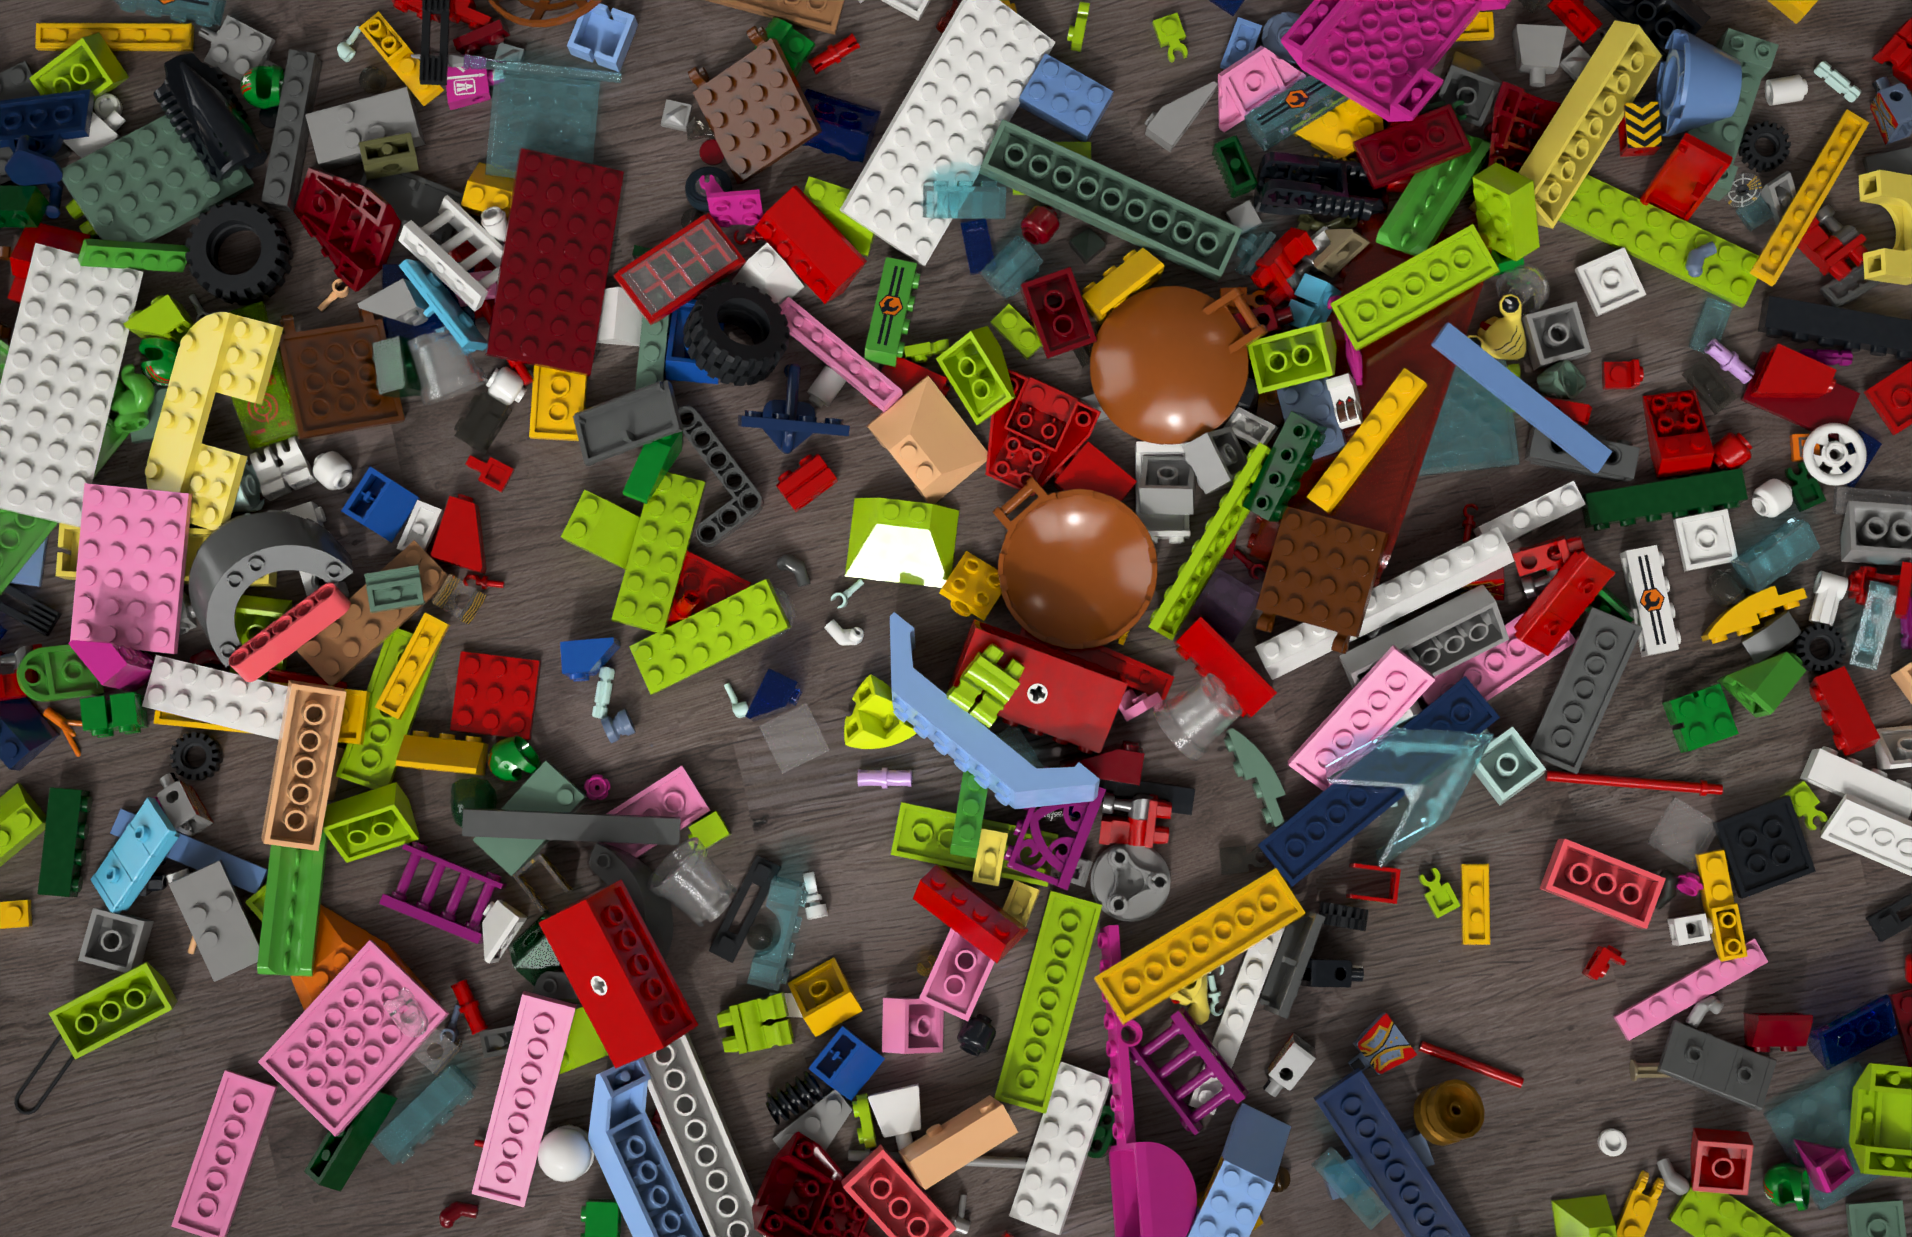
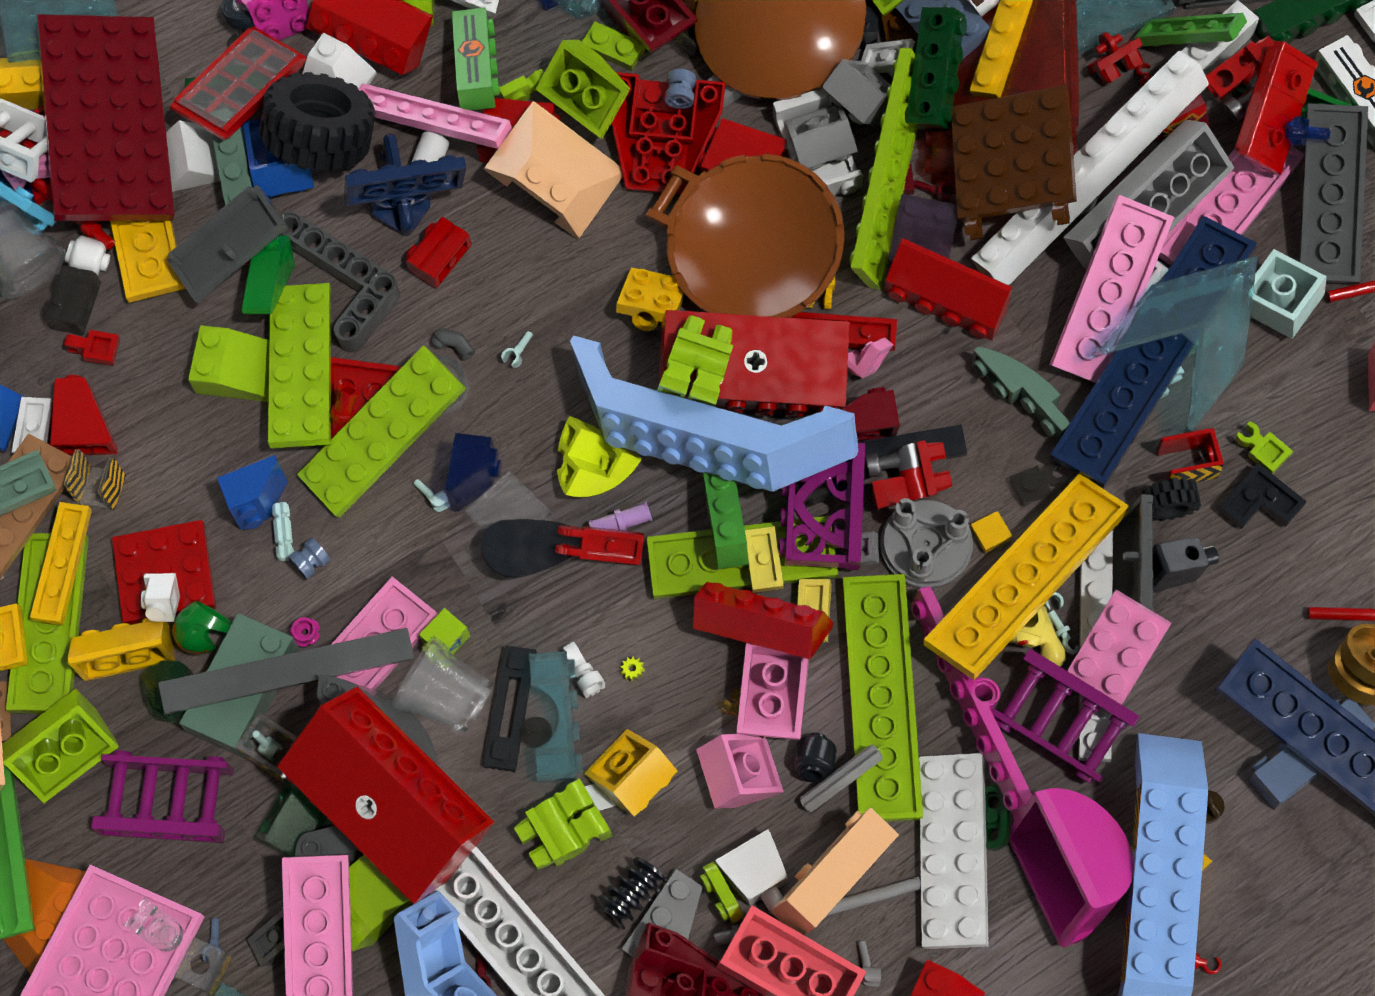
camera: 15 degrees left, 15 degrees down
(469, 1006) = (227, 914): red pin -> none
(484, 582) = (120, 459): red hand -> none
(485, 726) = (160, 597): none -> white brick
(495, 223) = (30, 96): white cone -> none
(500, 928) = (240, 812): white slope -> none
(539, 877) = (267, 745): none -> light aqua hand
(754, 236) = (308, 40): red hand -> none
(802, 778) = (524, 546): none -> black shield
(844, 636) = (529, 393): white arm -> none
(846, 1063) = (678, 833): blue slope -> none
(850, 911) = (632, 674): none -> neon yellow piece
(861, 796) = (603, 544): none -> red hinge
(901, 541) = (558, 278): lime slope -> none
(991, 1060) = (841, 778): none -> light grey axle
(1060, 403) = (680, 84): none -> sand blue wheel
(1187, 889) = (991, 532): none -> yellow tile
(1197, 715) = (937, 338): clear piece -> none
(1251, 1033) = (1119, 647): none -> bright pink plate
(1294, 1055) = (1178, 662): light grey torso -> none
(1350, 1188) = (1295, 774): clear light blue brick -> none
(1381, 1046) = (1269, 621): torso -> none
(1419, 929) = (1263, 491): none -> black plate
(1447, 490) = (1127, 52): none -> red hips
(1475, 904) = (1307, 448): yellow tile -> none
(1521, 499) = (1192, 29): none -> bright green plate
(1574, 631) = (1299, 131): none -> clear blue plate

